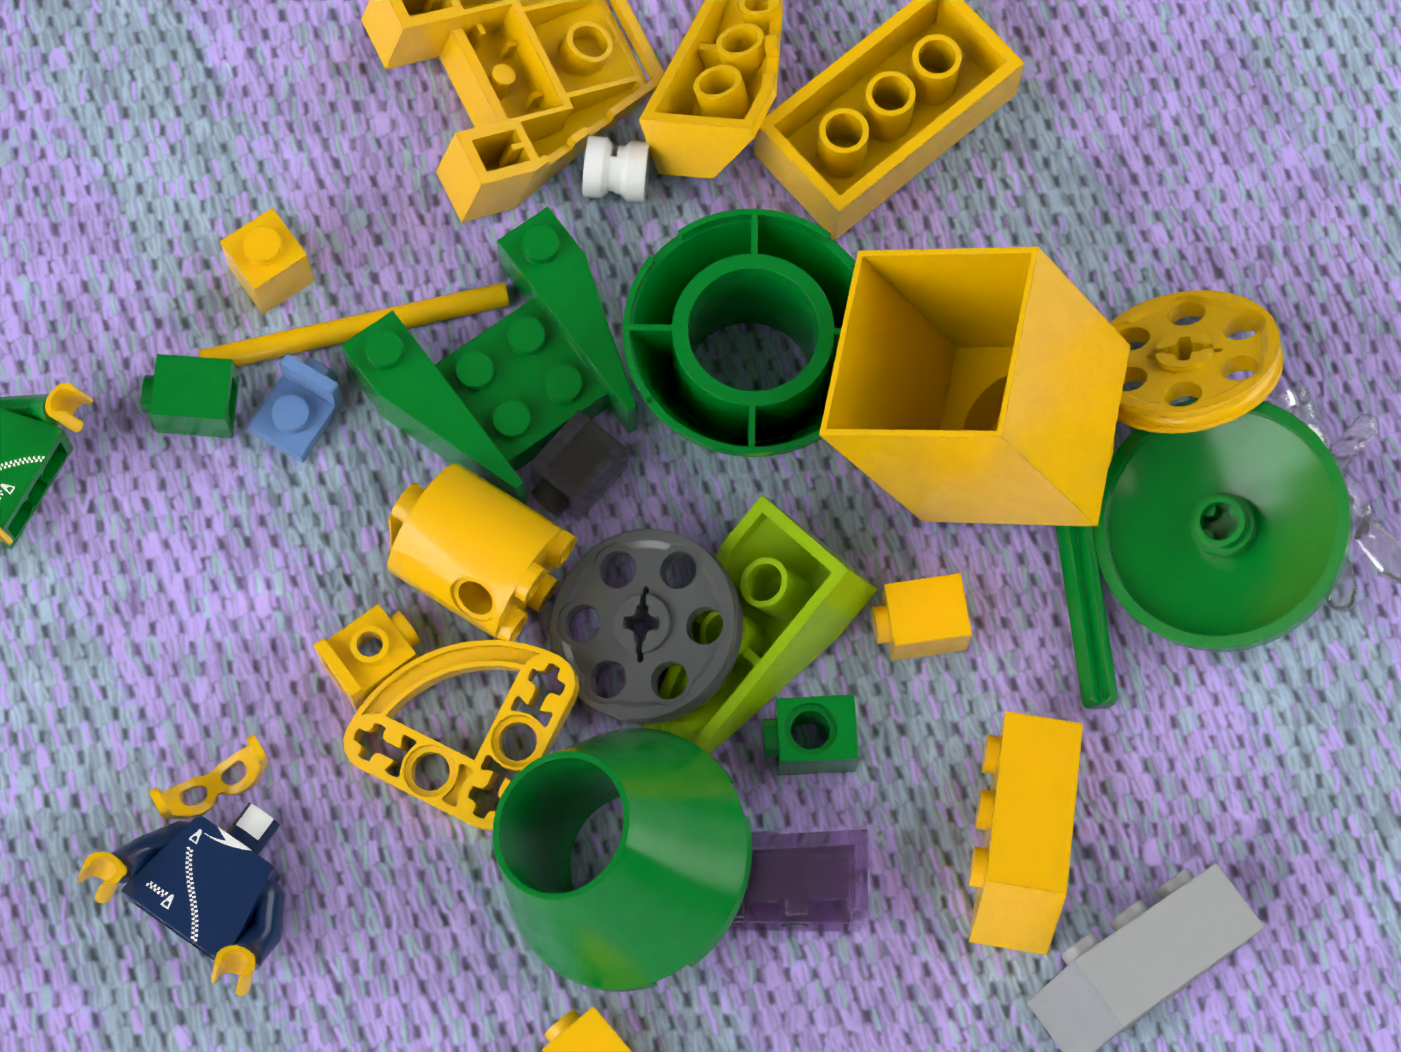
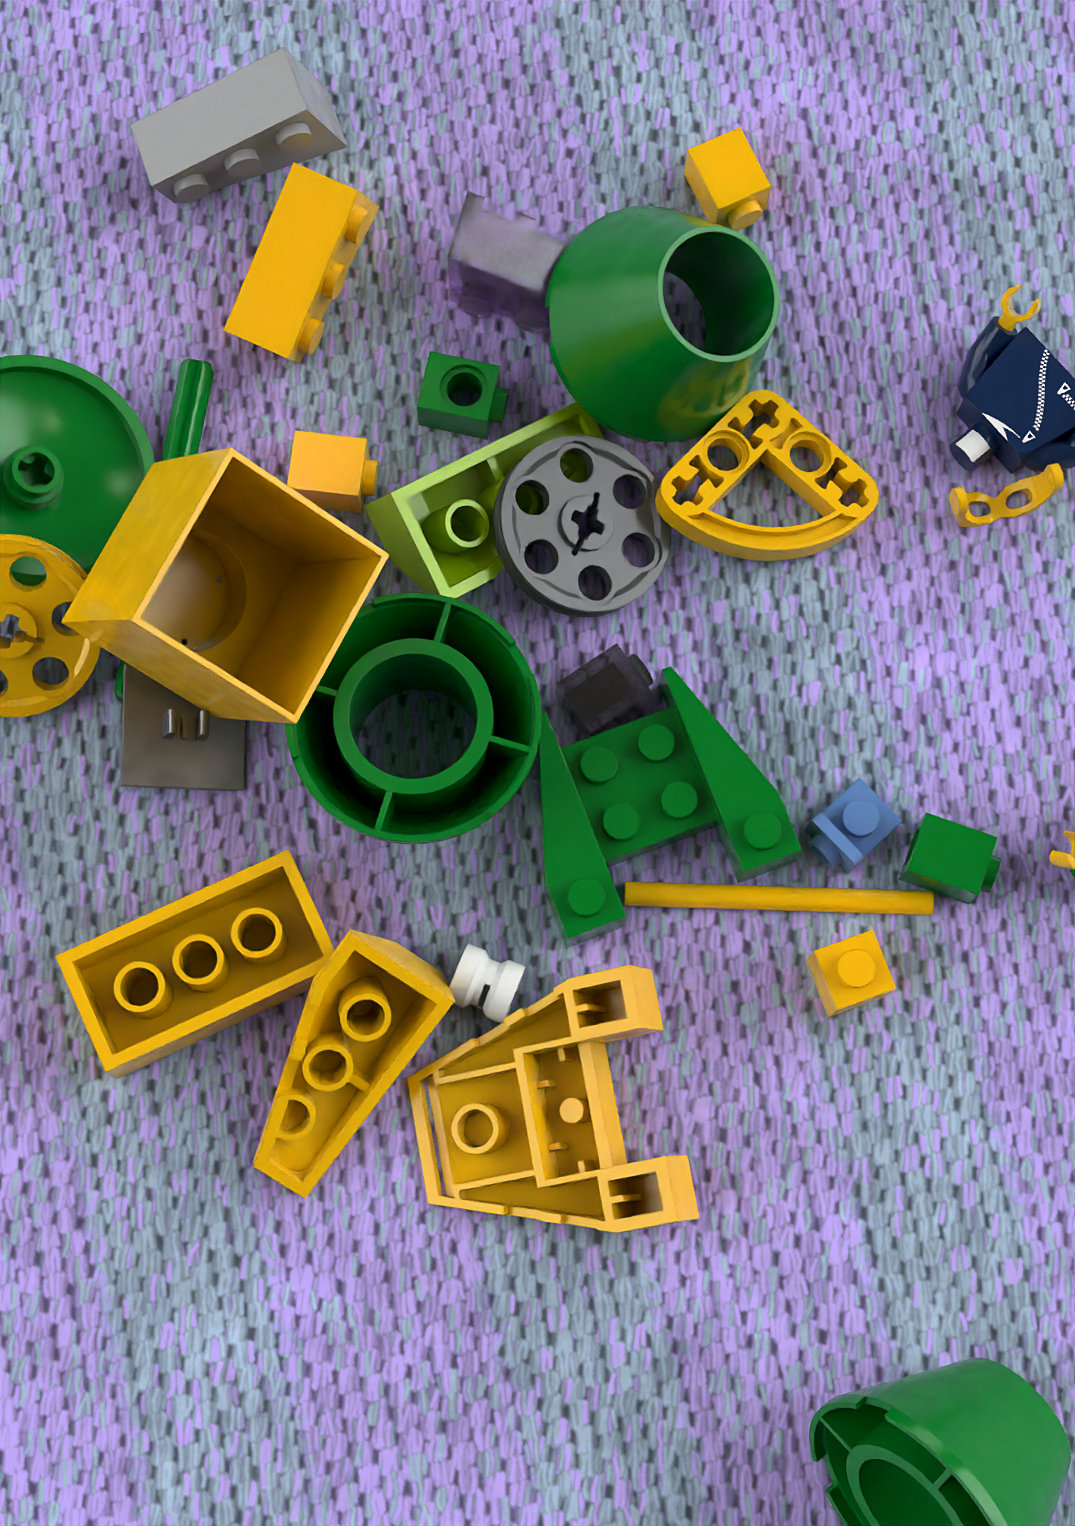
camera: 165 degrees left, 5 degrees up
(362, 674) = (827, 593): yellow brick -> none
(476, 550) = (720, 626): yellow cylinder -> none

